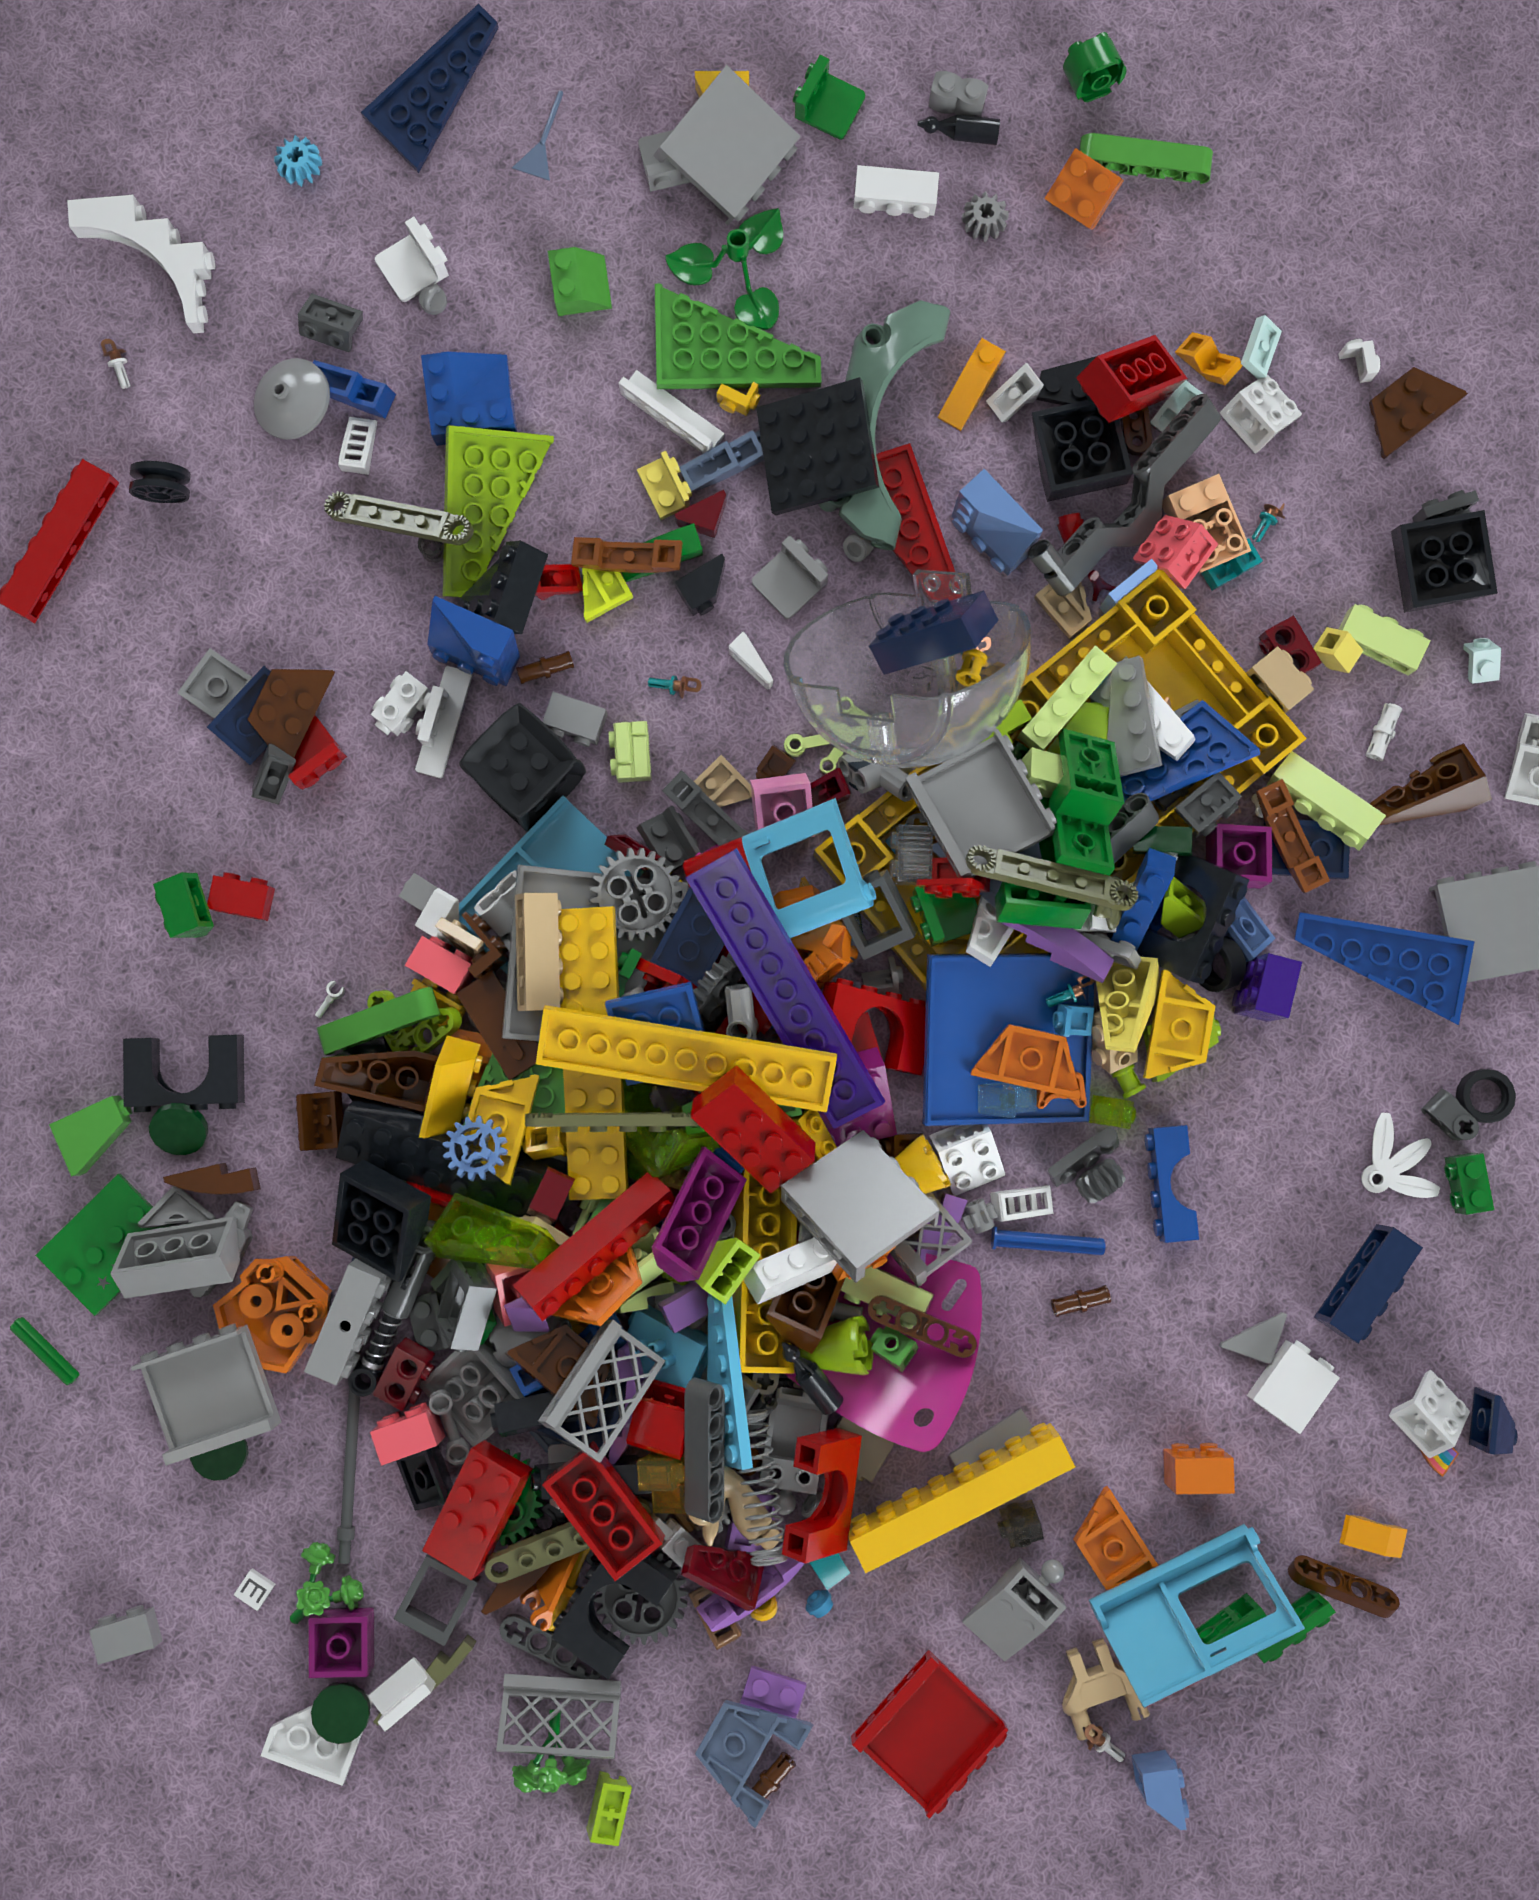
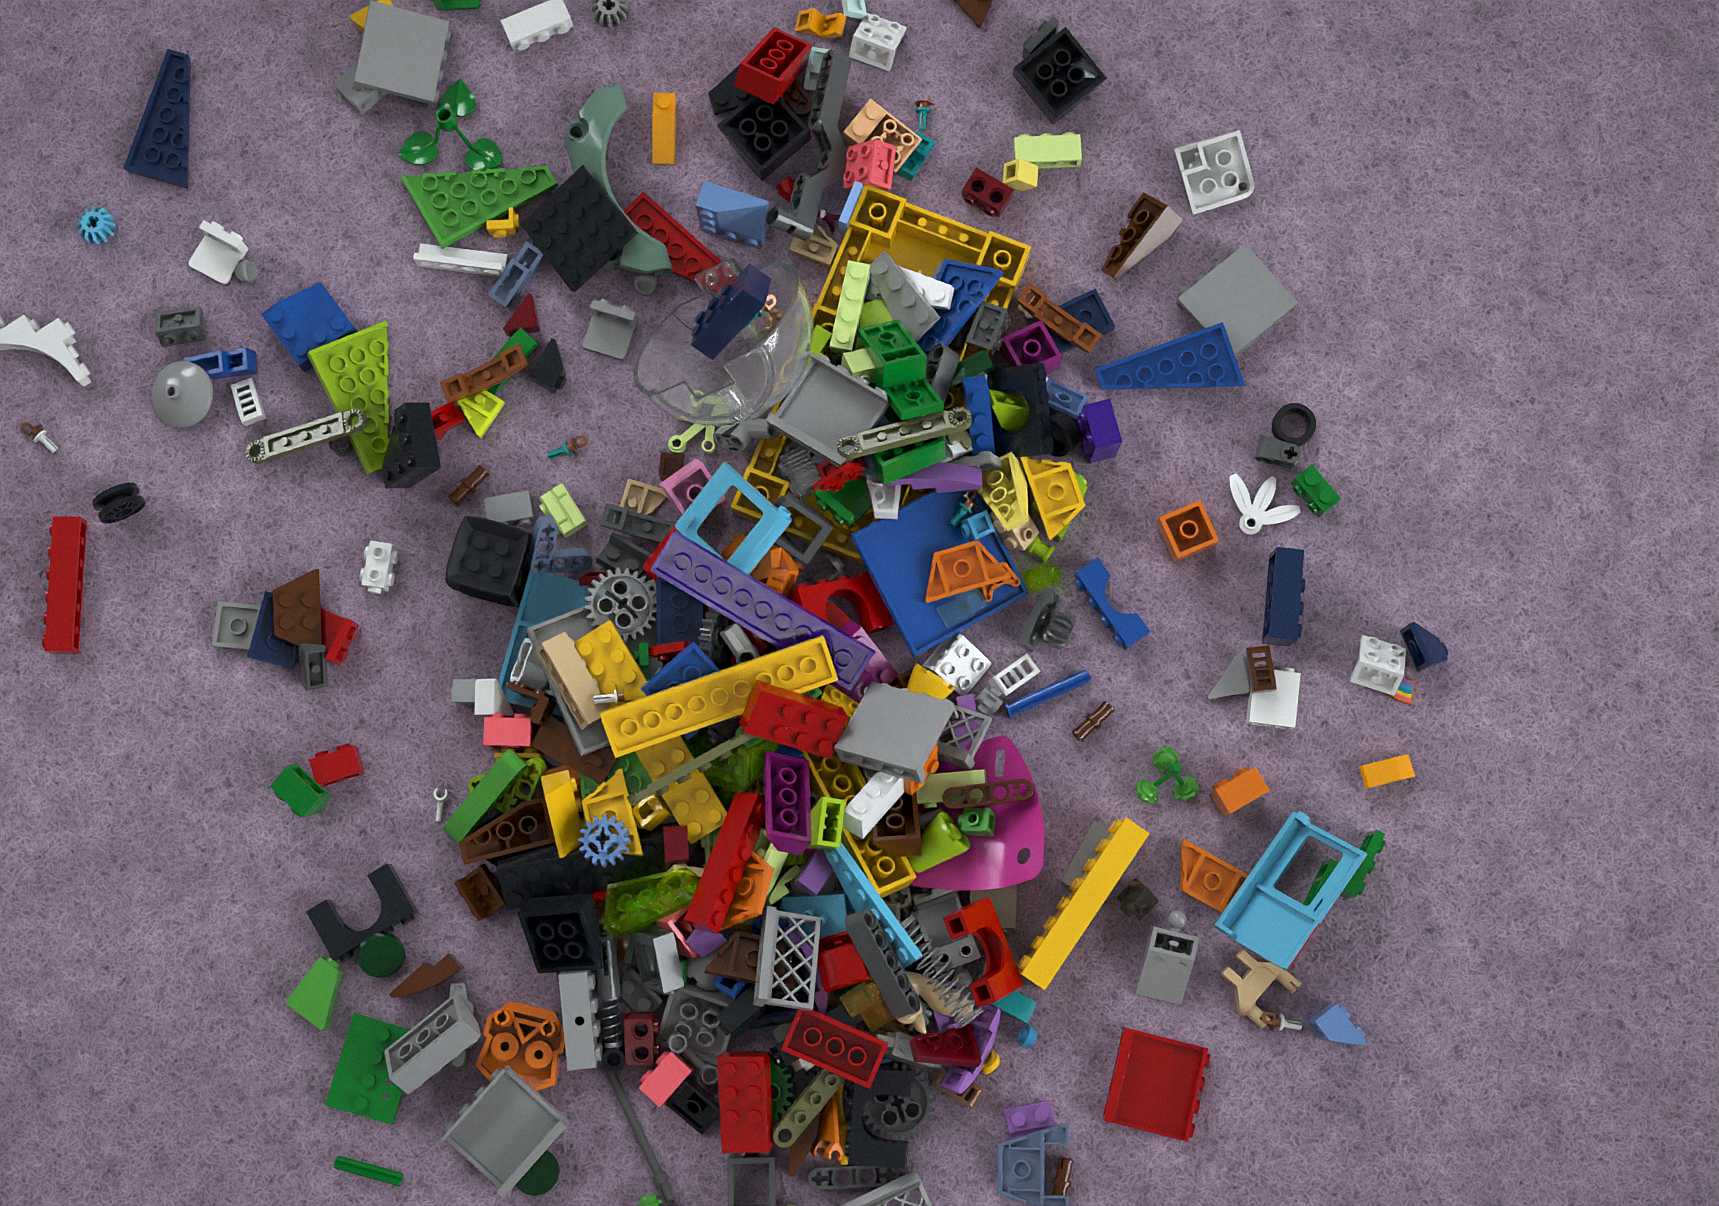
camera: 25 degrees left, 5 degrees down
(175, 1209) = (408, 1014): light grey tile -> none
(441, 721) = (414, 563): white bracket -> none
(459, 937) = (512, 704): tan wing -> none
(472, 642) = (407, 494): blue slope -> none
(536, 159) = (267, 135): sand blue piece -> none
(572, 997) = (616, 697): none -> white piece
(579, 281) = (345, 203): bright green slope -> none
(581, 795) = (543, 559): none -> sand blue beam
(664, 486) = (485, 313): light yellow bracket -> none
(746, 655) = (608, 400): white slope -> none
(813, 1380) = (932, 874): black wheel -> none
(830, 787) = (717, 456): dark red slope -> none
(971, 667) = (769, 321): yellow bush -> none
(1015, 393) = (698, 117): white slope -> none
(1140, 1430) = (1167, 760): none -> bright green plant
(1280, 679) = (991, 215): tan slope -> none
(1301, 1150) = (1187, 531): none -> orange brick
(1308, 1355) = (1255, 687): none -> reddish brown slope
(1328, 801) = (1071, 281): yellowish green brick -> none
(1375, 1599) = (1359, 822): reddish brown beam -> none
(1383, 731) = (1084, 213): white pin -> none
(1483, 660) = (1125, 128): light aqua bracket -> none

